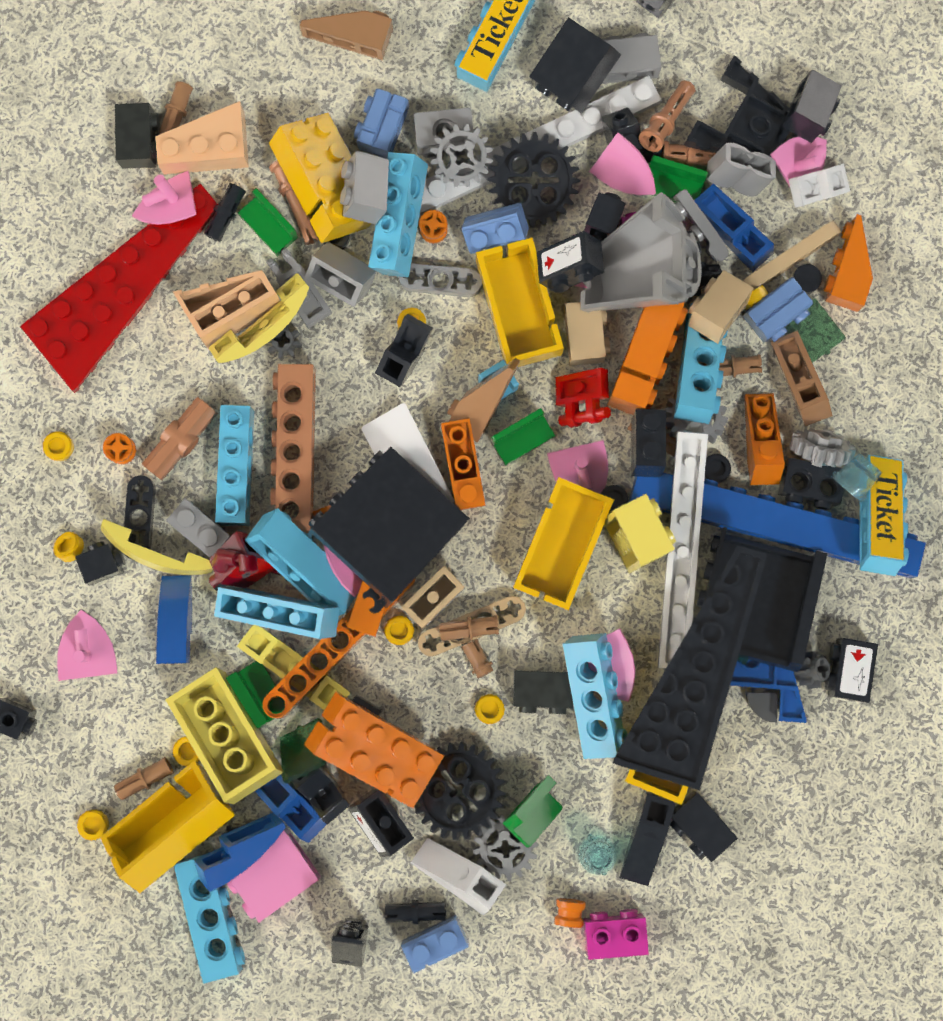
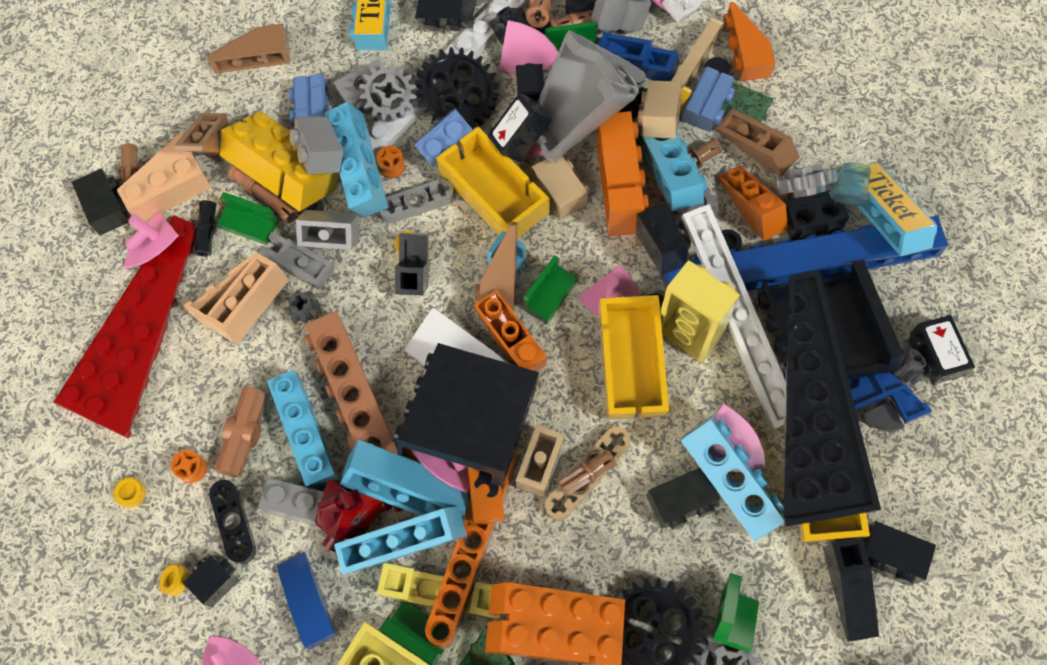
camera: 20 degrees left, 15 degrees down
(119, 538) = (258, 550): light yellow slope -> none
(262, 118) = (204, 134): none -> medium nougat slope
(267, 327) = (292, 263): light yellow slope -> none
(399, 630) = (523, 509): yellow tile -> none
(477, 659) = (608, 499): medium nougat pin -> none
(489, 709) = (642, 541): yellow tile -> none
(580, 388) = (579, 227): red plate -> none
(597, 854) = (815, 630): clear light blue piece -> none

